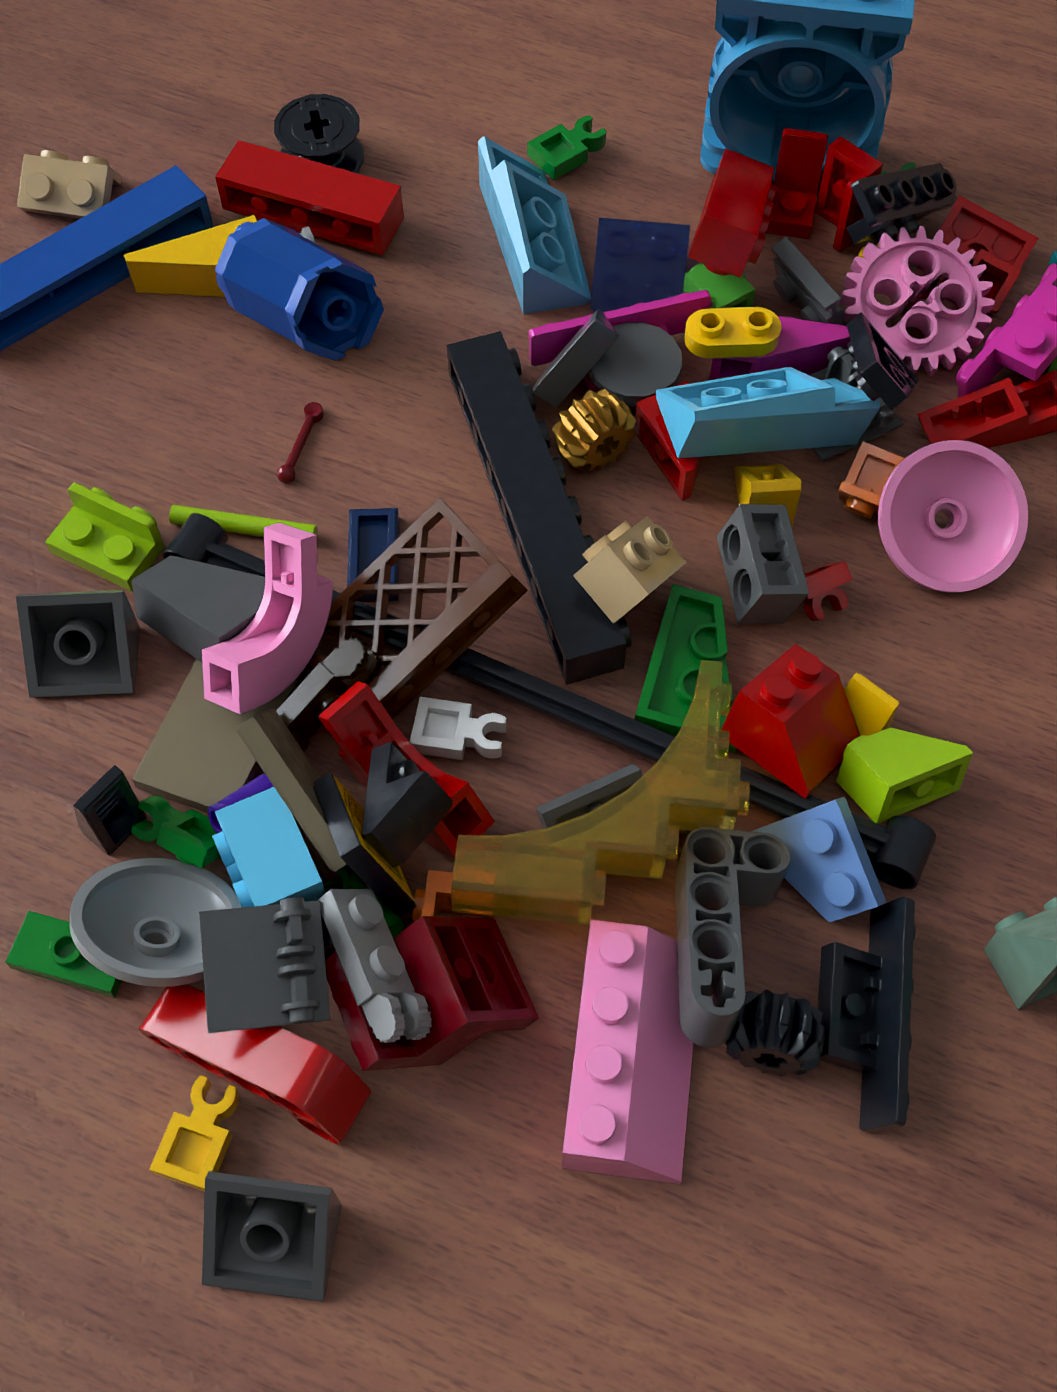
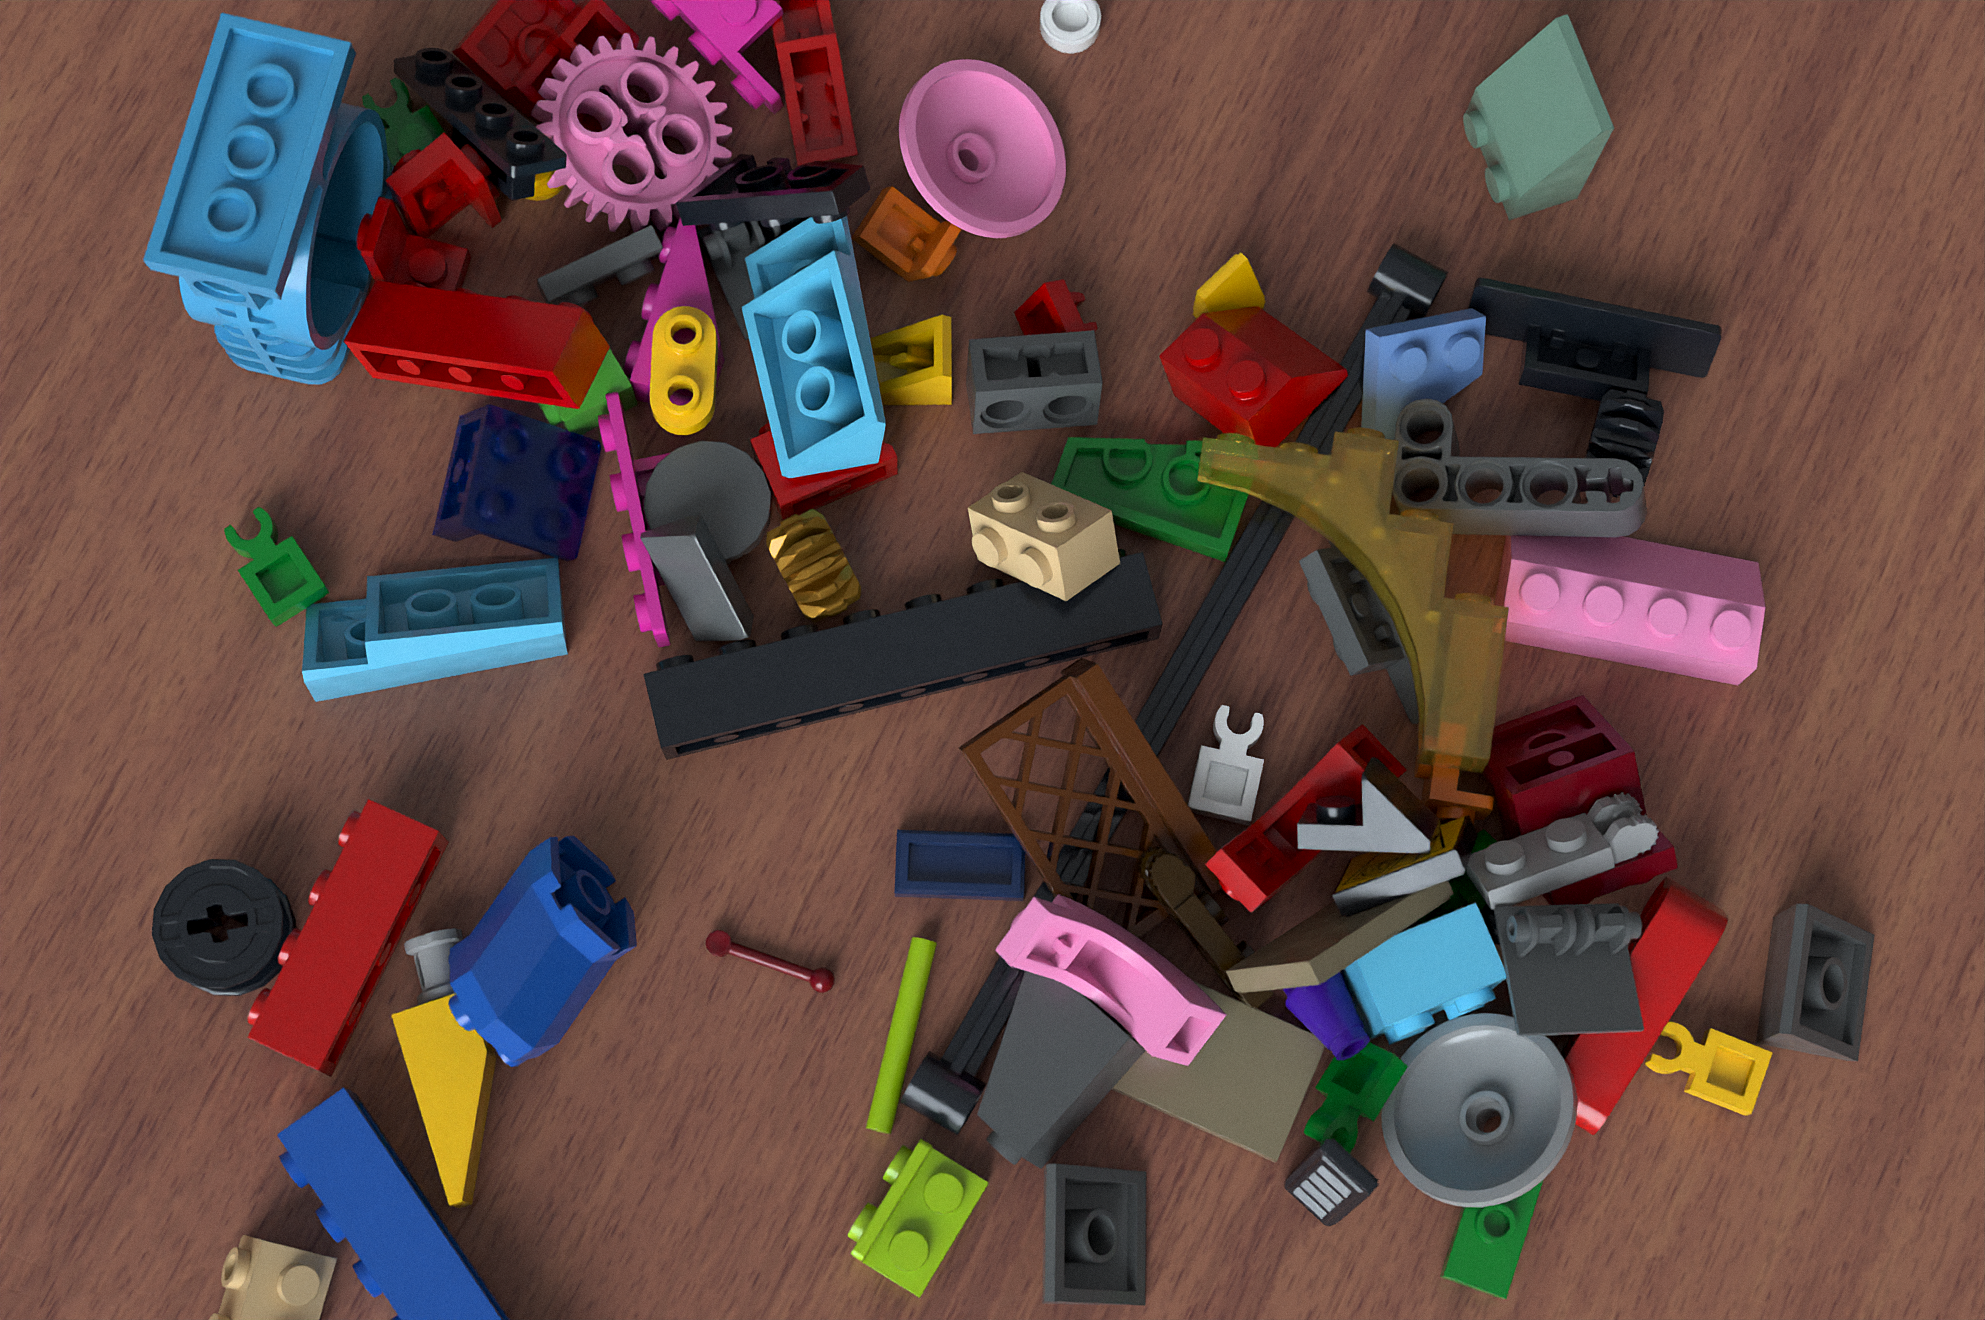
camera: 90 degrees left, 15 degrees up
(900, 771) = (1315, 271): lime slope -> none

